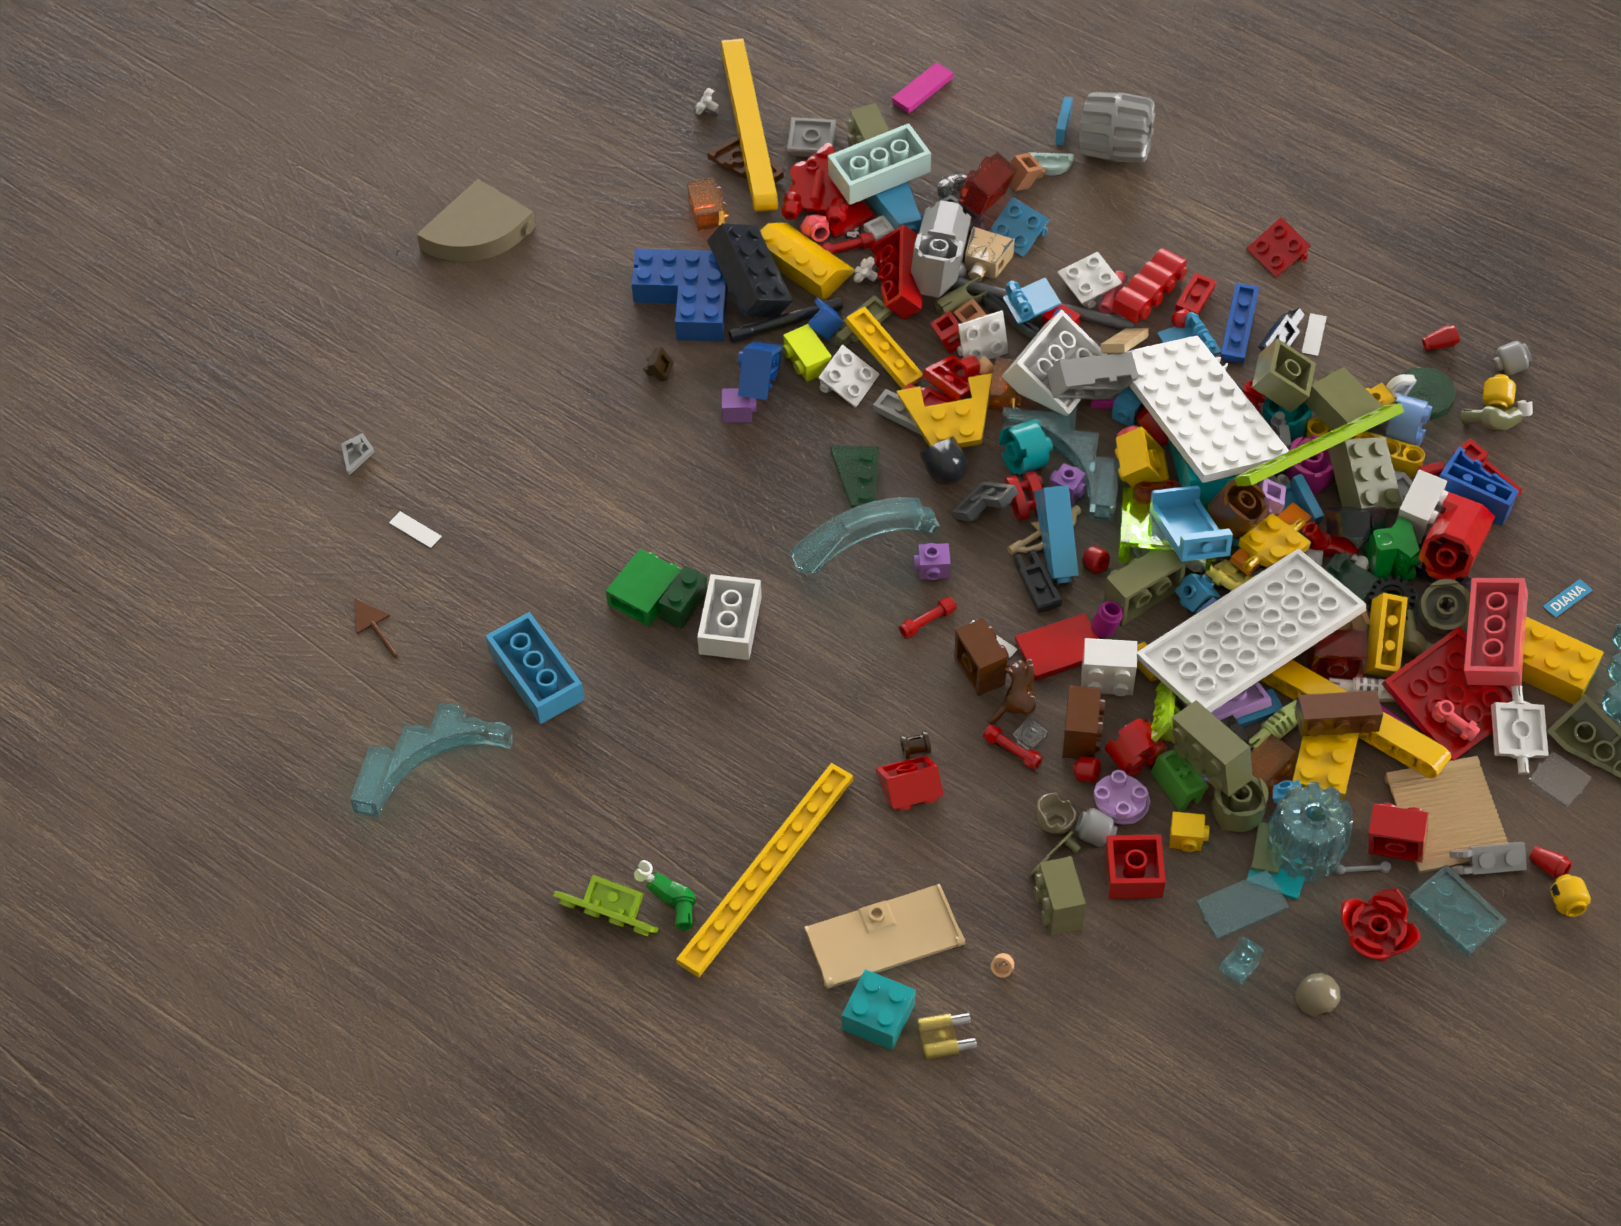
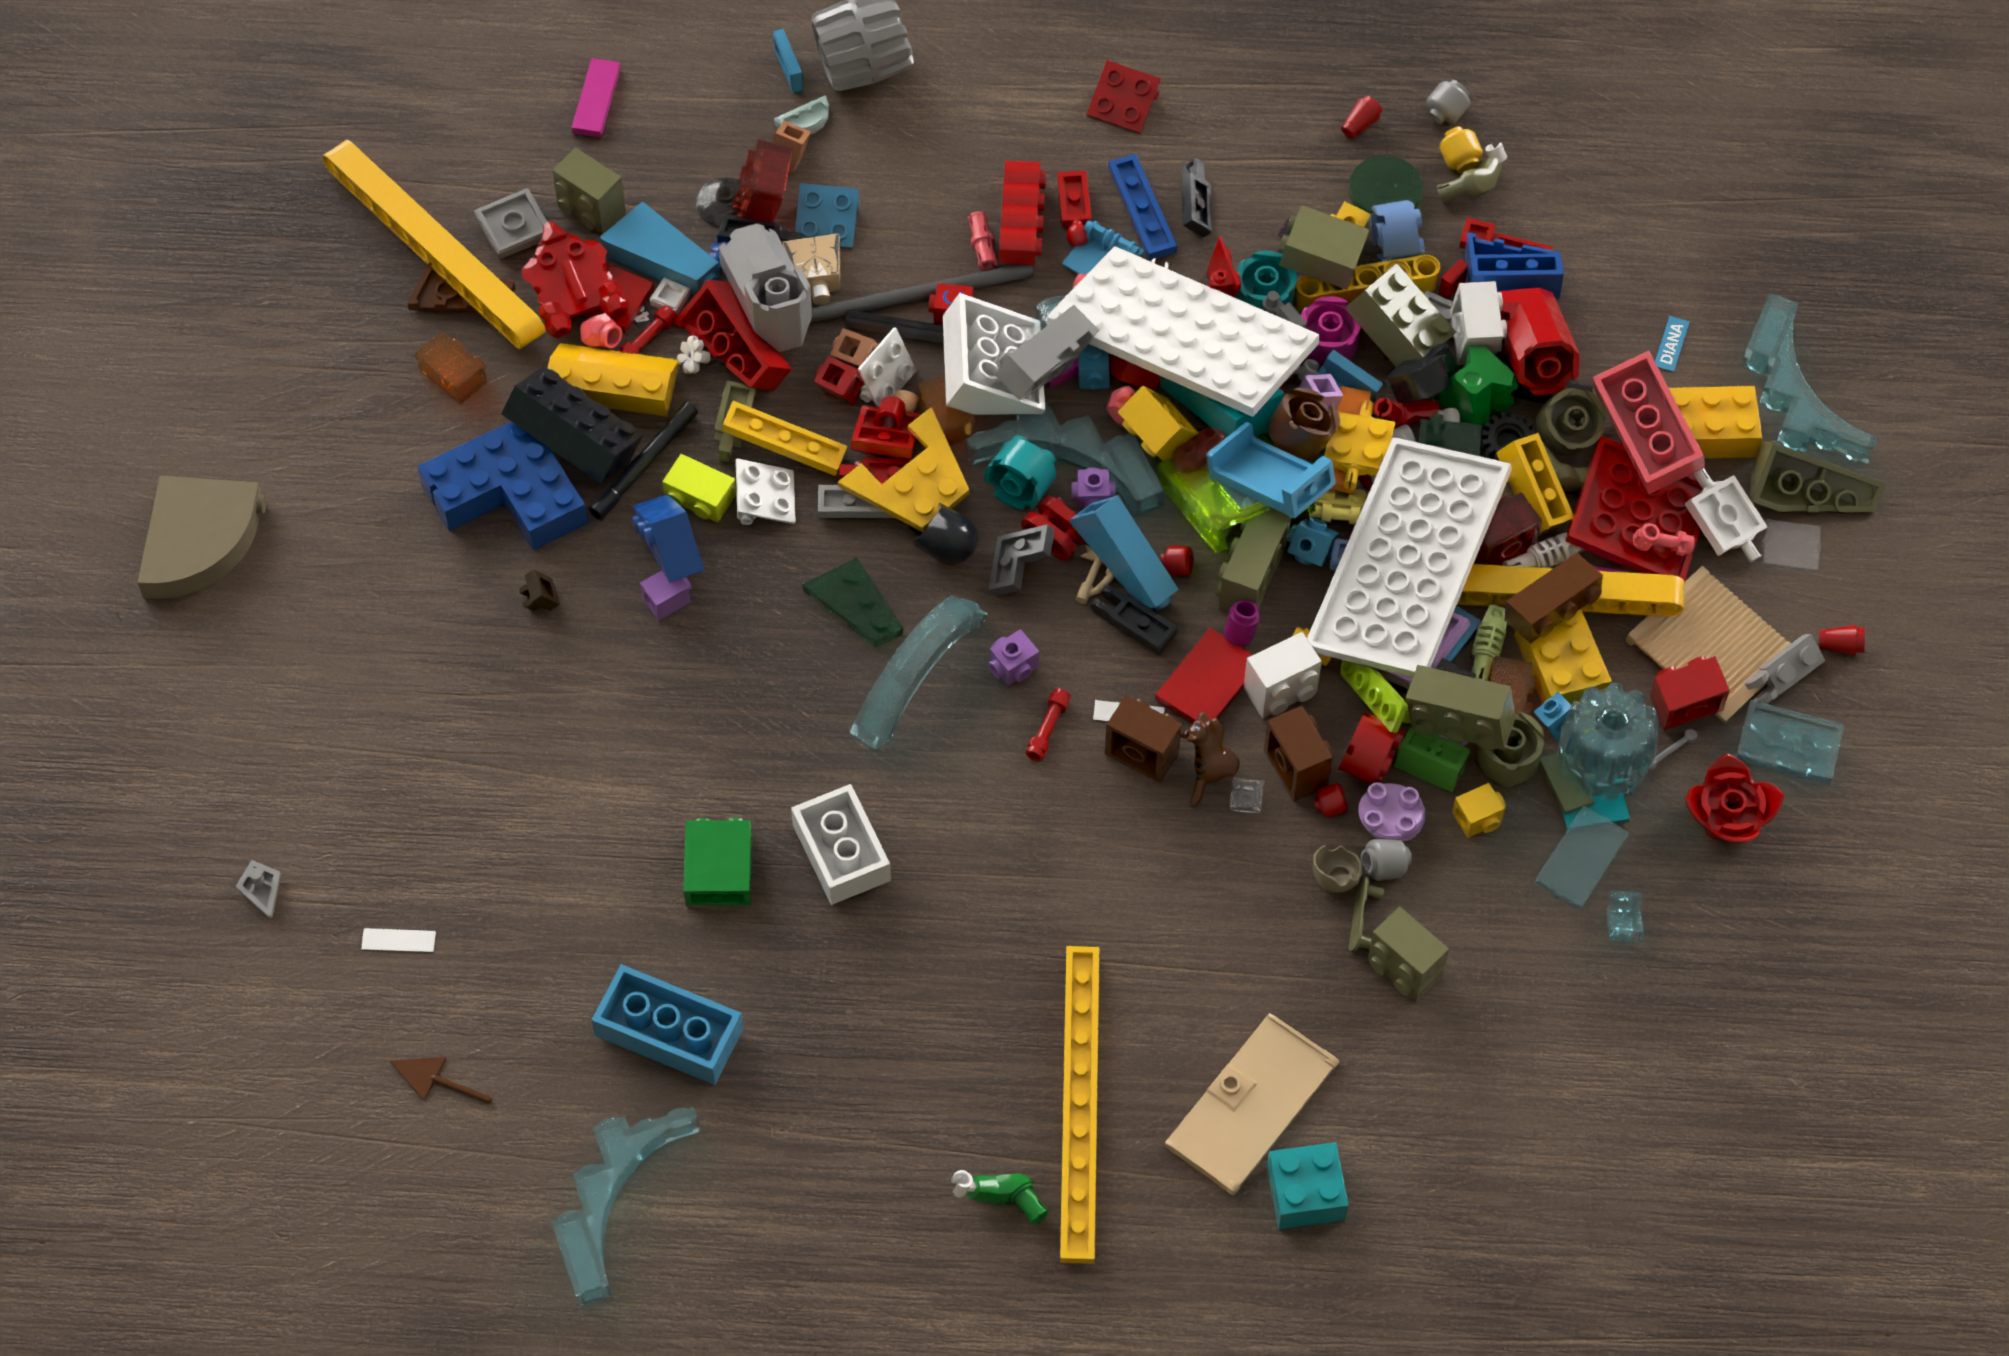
camera: 35 degrees left, 5 degrees up
(610, 900) = (944, 1236): lime bracket -> none
(683, 597) = (770, 850): dark green brick -> none
(706, 102) = (357, 240): white plant -> none
(826, 320) = (697, 439): blue panel -> none
(879, 163) = (631, 219): light aqua brick -> none
(910, 782) = (1162, 919): red slope -> none
(915, 744) = (1138, 874): dark brown bush -> none
(939, 1036) = (1384, 1176): clear yellow piece -> none
(956, 298) = (821, 338): olive piece -> none
(1005, 969) = (1398, 1062): light nougat hinge -> none
(1030, 300) = (907, 296): hinge -> none
(1030, 758) = (1267, 821): red bar -> none
(1089, 279) = (950, 237): white hinge -> none
(1124, 340) = (1047, 293): tan tile -> none
(1134, 866) = (1456, 879): red brick -> none
(1284, 375) = (1251, 248): olive brick -> none
(1314, 334) = (1224, 179): white sticker -> none
(1317, 994) = (1717, 909): dark tan hair -> none
(1318, 445) = (1343, 310): lime tile -> none
(1401, 385) = (1365, 193): white tile -> none
(1570, 895) = (1885, 664): yellow head -> none

